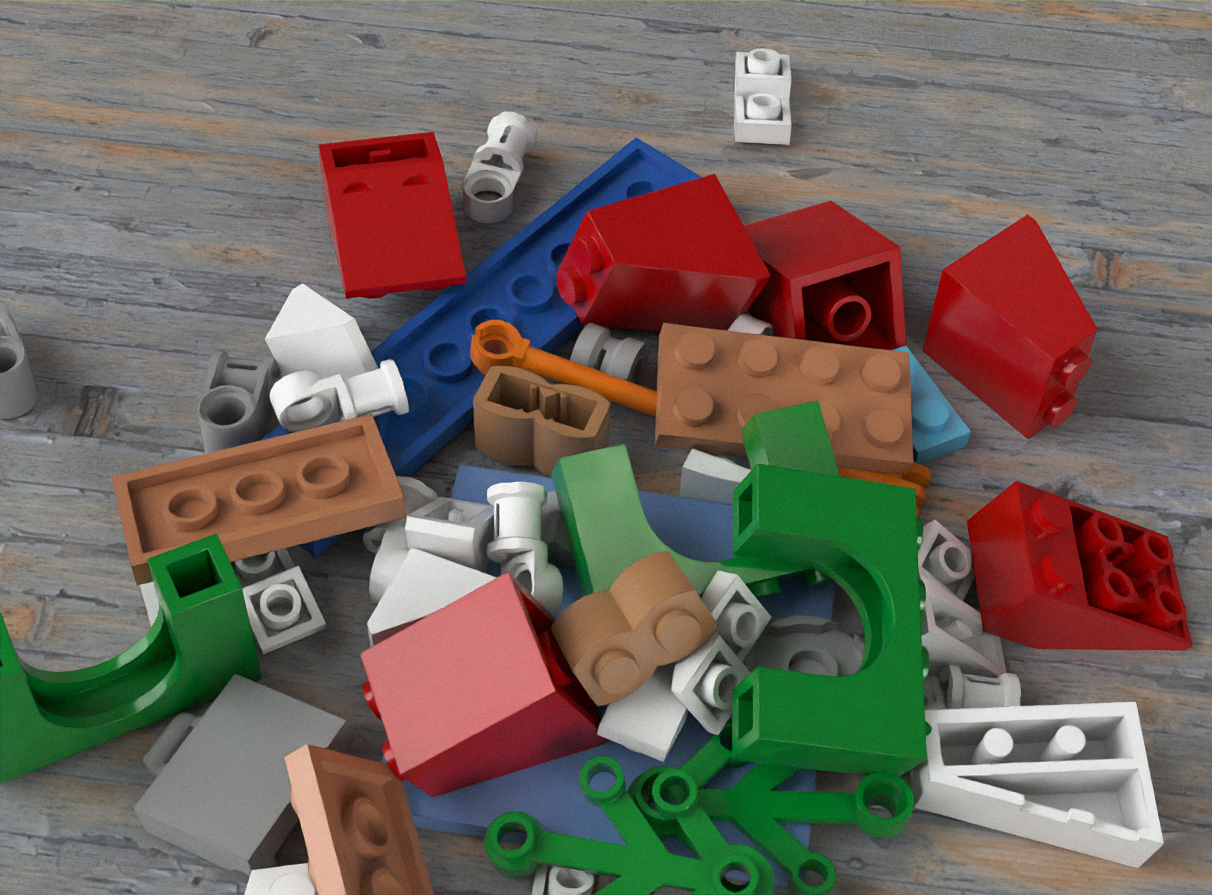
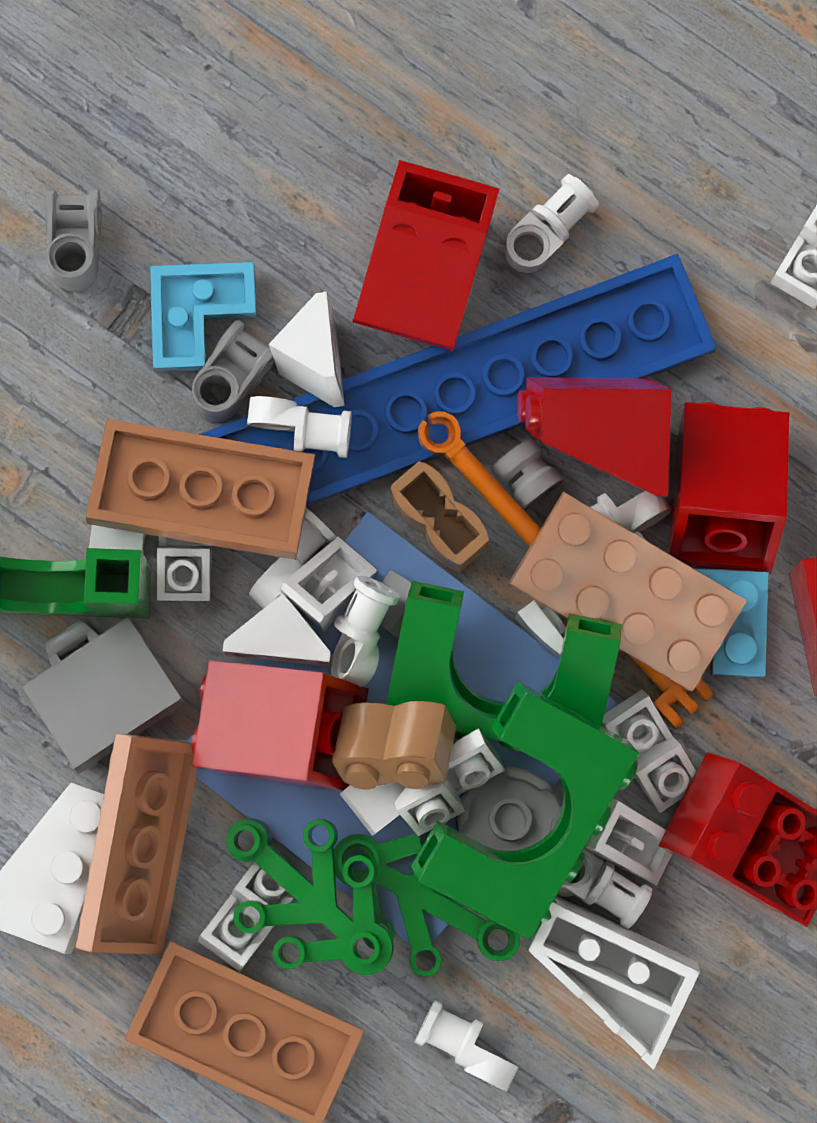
camera: 30 degrees right, 30 degrees up
(153, 363) = (186, 297): none -> medium azure plate

